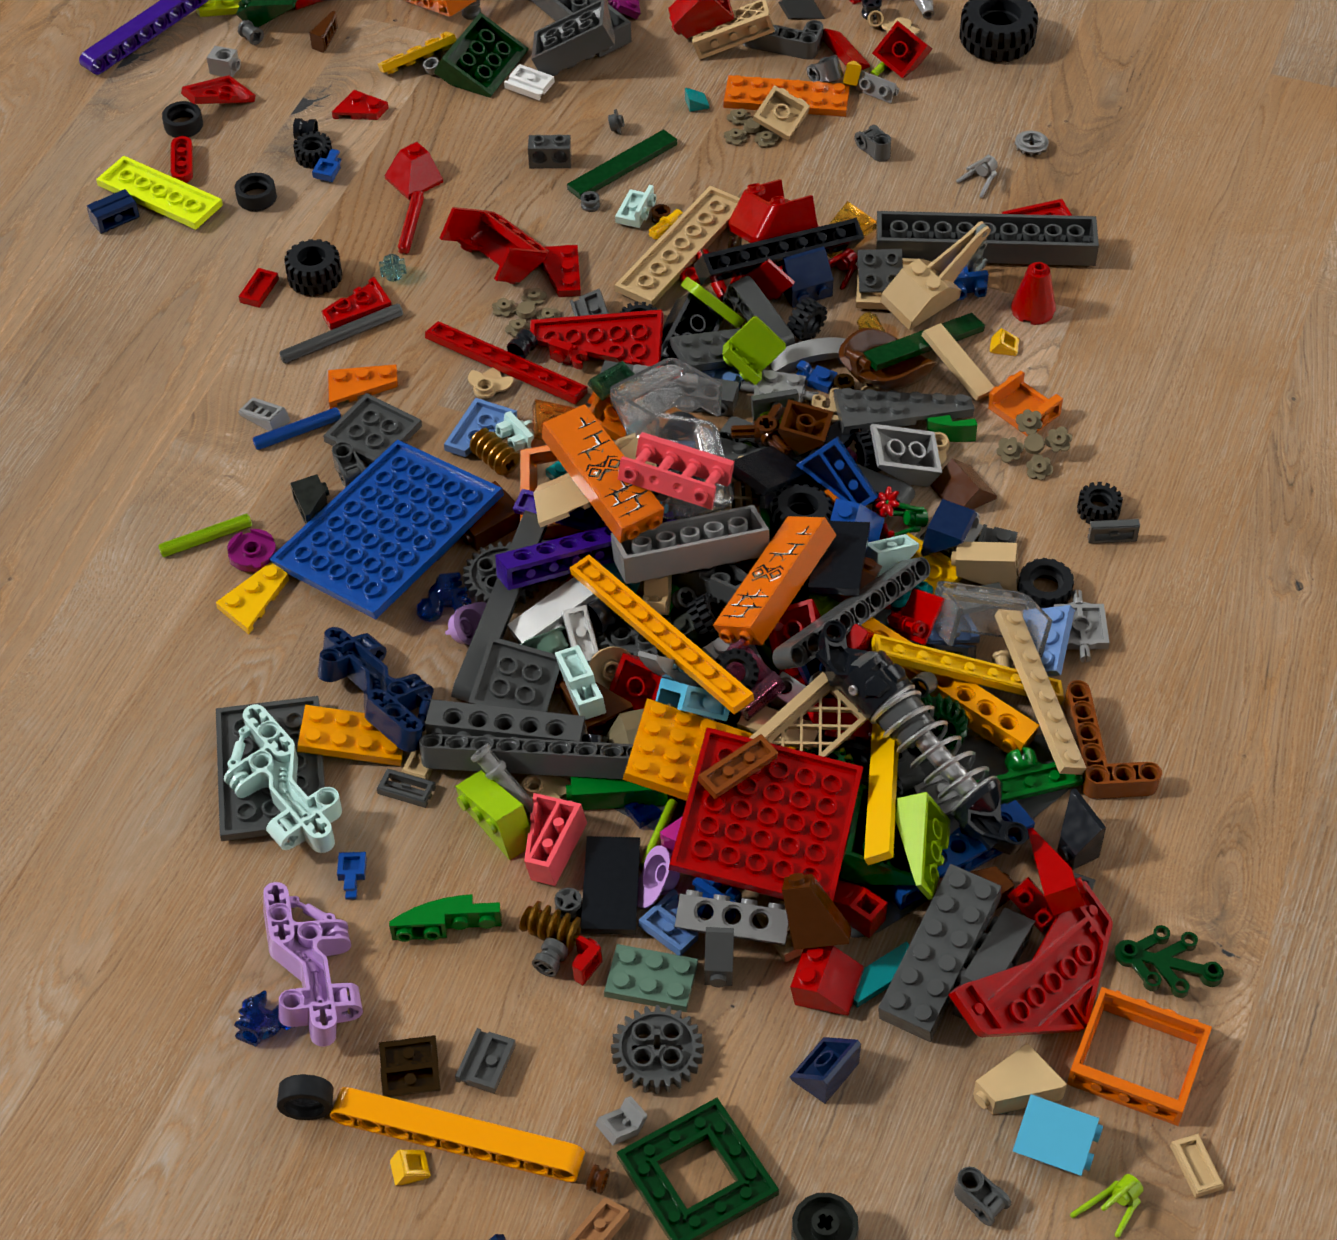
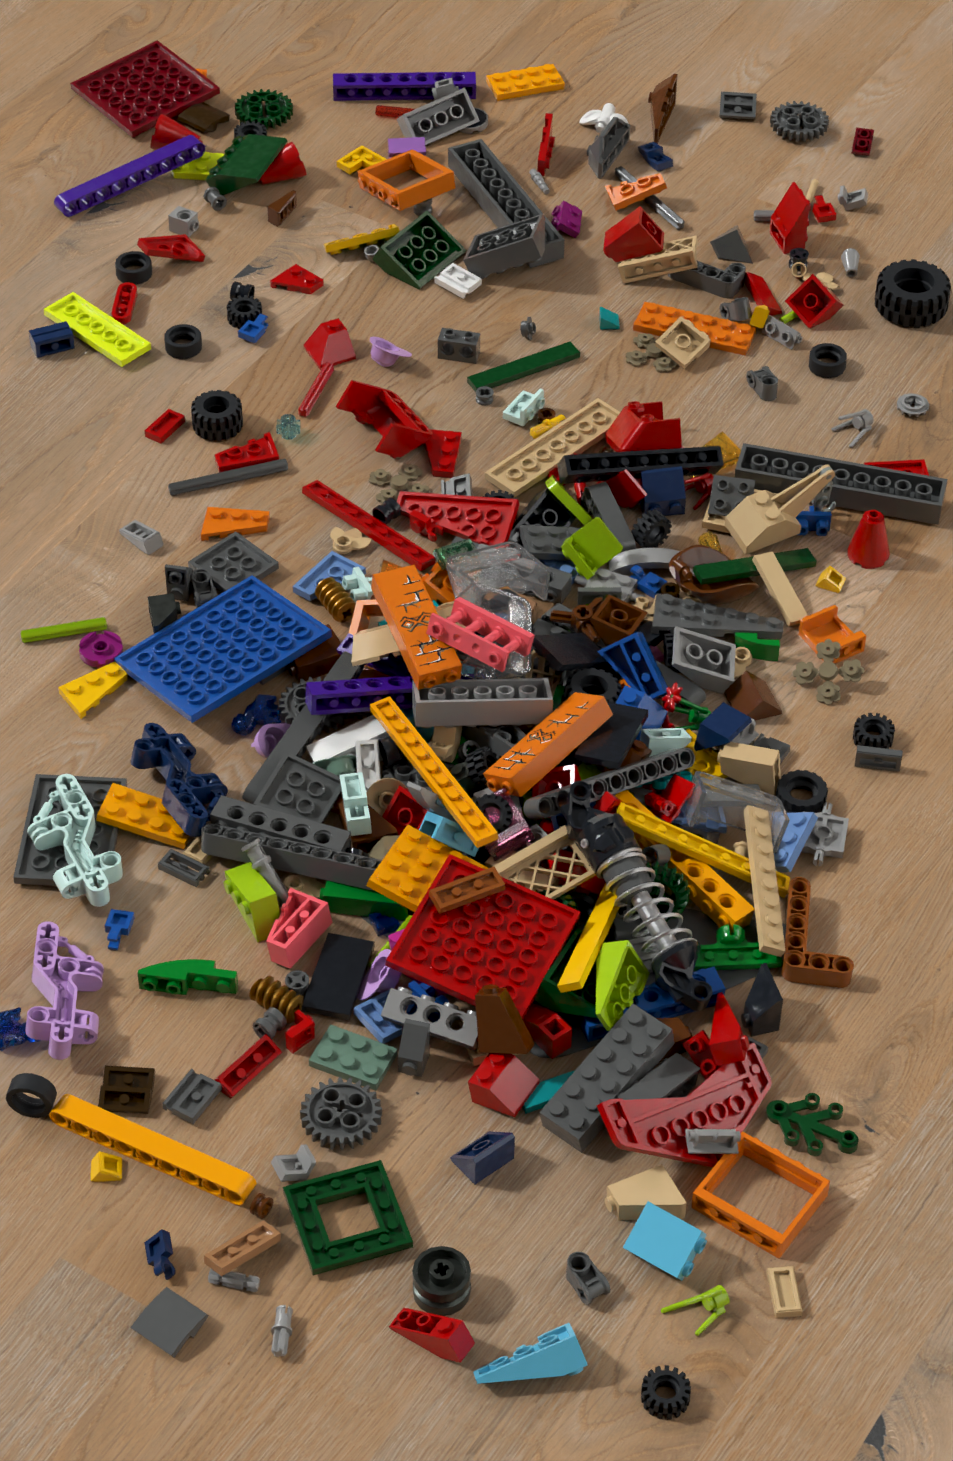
camera: 10 degrees right, 5 degrees down
(296, 428) = (166, 552): blue axle -> none
(319, 459) = (179, 581): none -> dark grey slope
(475, 171) = (385, 352): none -> lavender piece
(537, 1010) = (248, 1066): none -> red slope
(932, 99) = (831, 351): none -> black tyre
(1076, 1005) = (712, 1141): none -> light grey hinge

